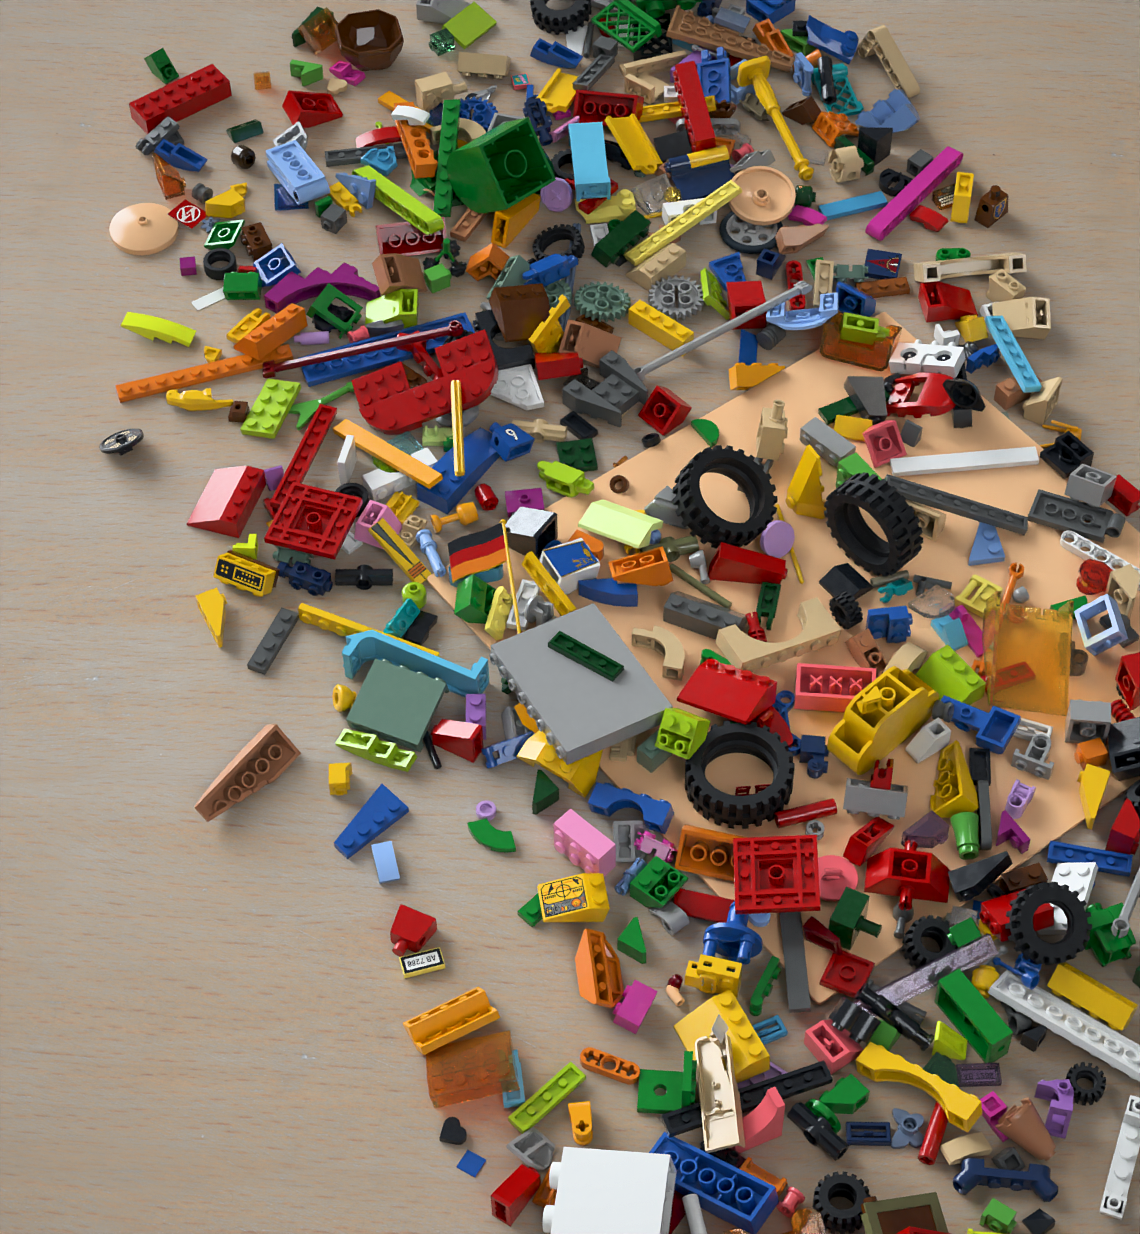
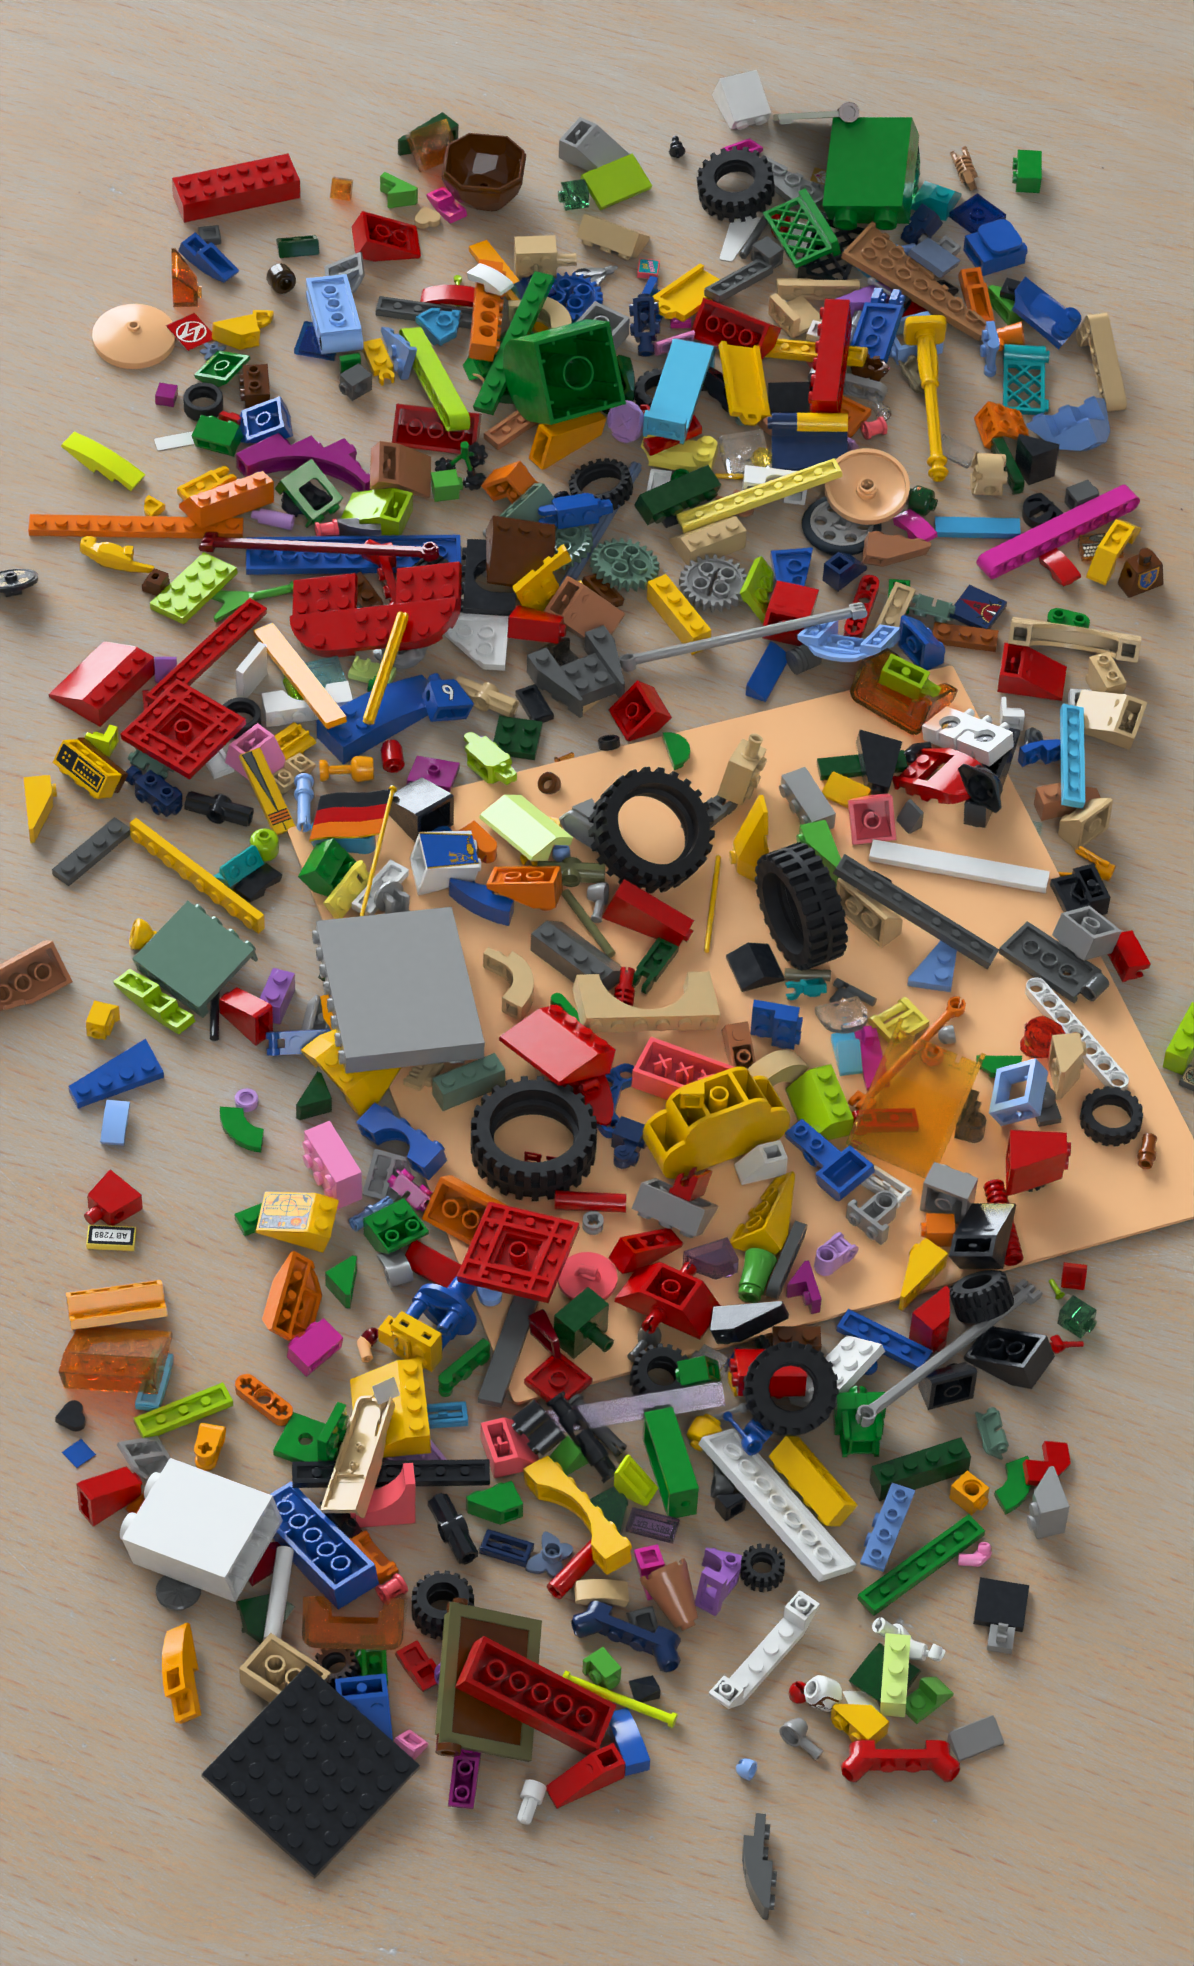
camera: 15 degrees right, 0 degrees up
(160, 132) = (197, 223): dark grey hinge -> none
(161, 66) = (230, 140): green slope -> none
(202, 193) = (216, 310): dark grey wheel -> none
(372, 645) = (194, 886): medium azure panel -> none
(547, 584) = (413, 871): yellow tile -> none
(555, 54) = (704, 245): blue slope -> none
(585, 656) = (414, 961): dark green tile -> none
(681, 732) = (483, 1073): lime slope -> none
(747, 376) = (754, 699): light orange slope -> none
(752, 159) = (879, 440): light grey slope -> none
(777, 539) = (695, 894): lavender tile -> none
(803, 111) = (970, 394): reddish brown slope -> none
(821, 1109) = (463, 1507): green tile -> none
(828, 90) = (1017, 350): black axle -> none
(846, 610) = (736, 995): black tyre -> none
(943, 710) = (789, 1134): dark grey wheel -> none
(972, 328) = (1045, 713): yellow slope -> none
(979, 765) = (809, 1207): black tile -> none

